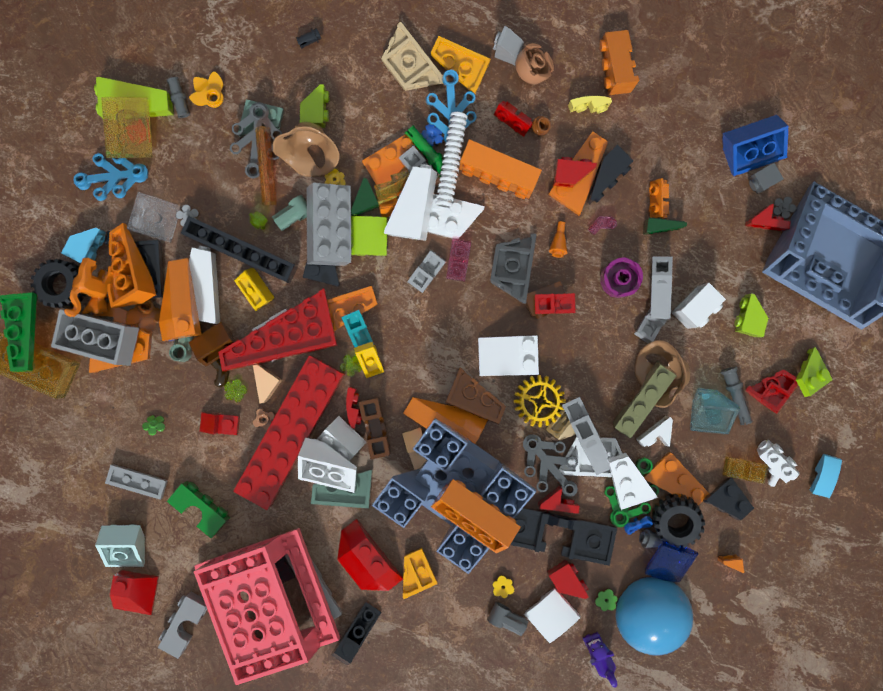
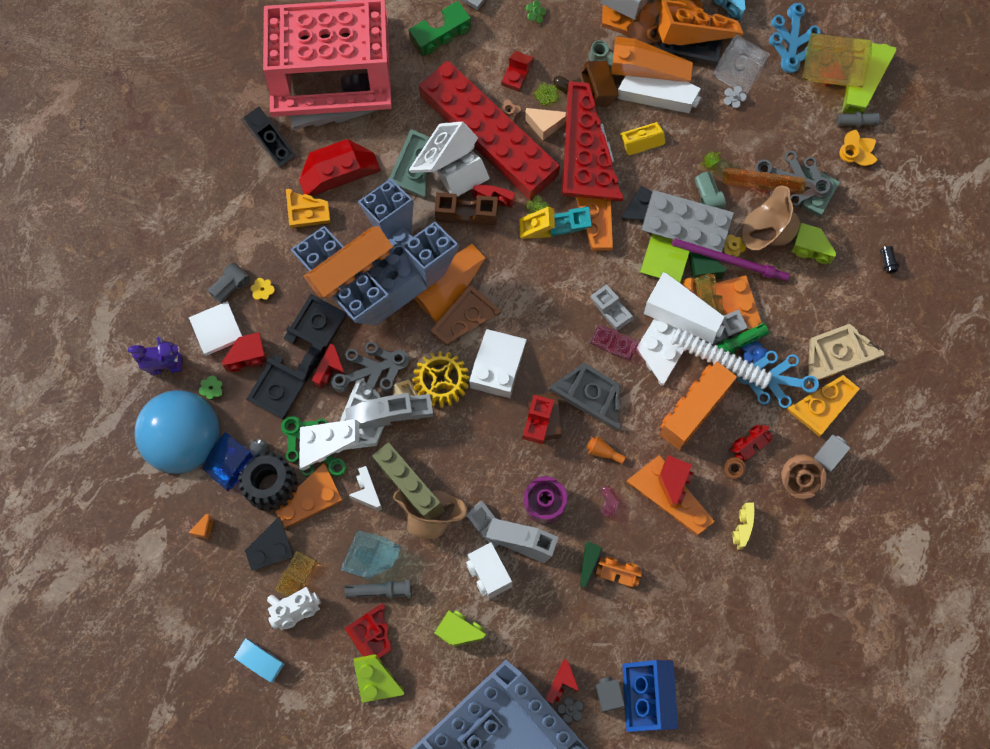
camera: 110 degrees right, 15 degrees down
(239, 249) = (685, 132): black brick -> none
(352, 143) = (766, 271): none -> magenta bar
(611, 166) = (666, 525): black slope -> none
(618, 62) = (783, 569): orange wedge -> none
(645, 522) = (276, 434): blue piece -> none

